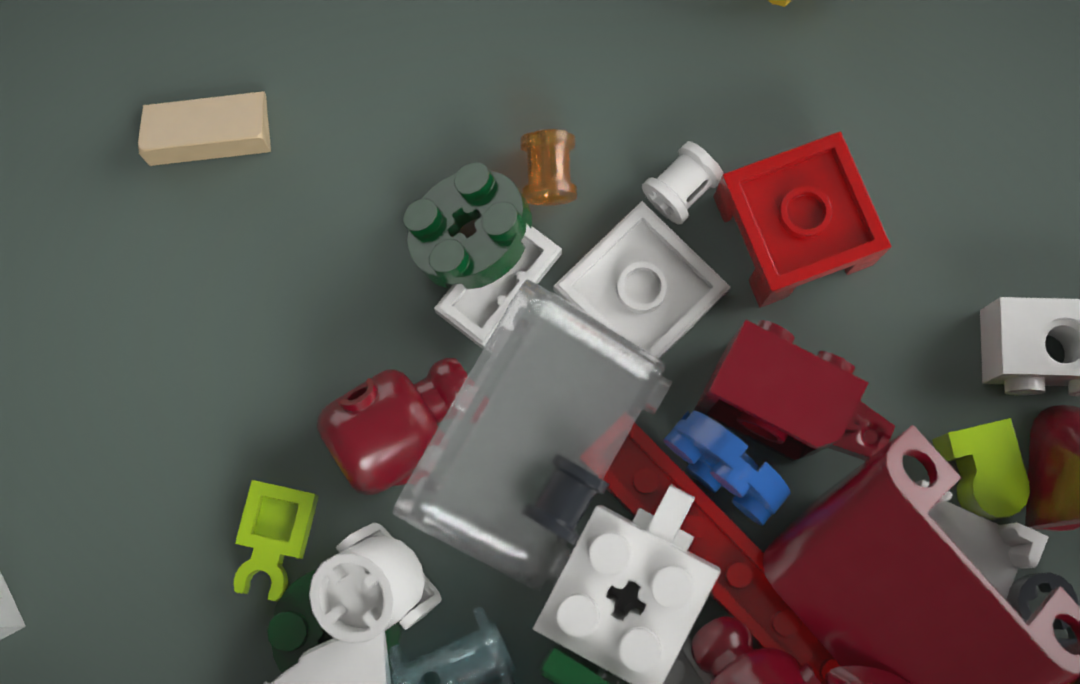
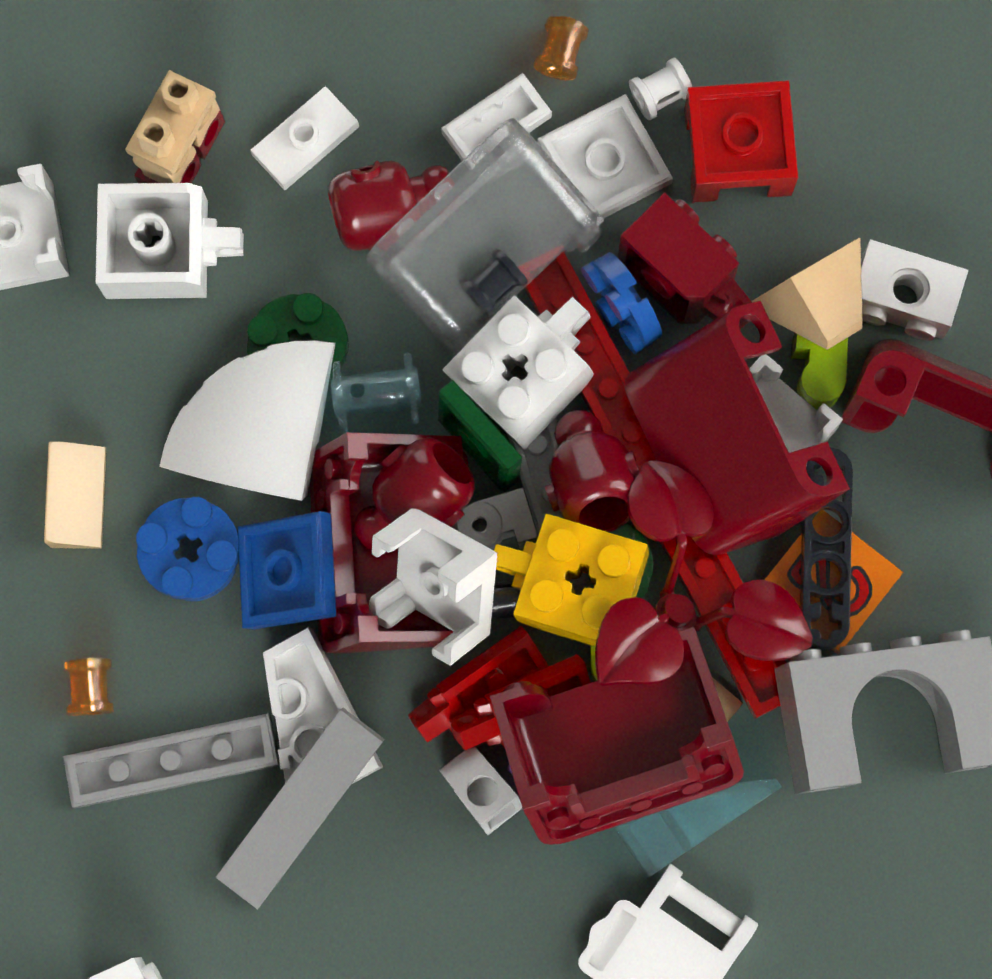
camera: 20 degrees right, 0 degrees up
(91, 417) = (175, 132): none -> tan hips
(158, 568) = (176, 263): none -> white hinge
(270, 367) = (305, 138): none -> white plate
(274, 525) = (274, 255): lime plate -> none
(370, 587) = (335, 309): white piece -> none
(452, 203) = (493, 52): plate -> none
(963, 388) = (822, 299): none -> tan slope

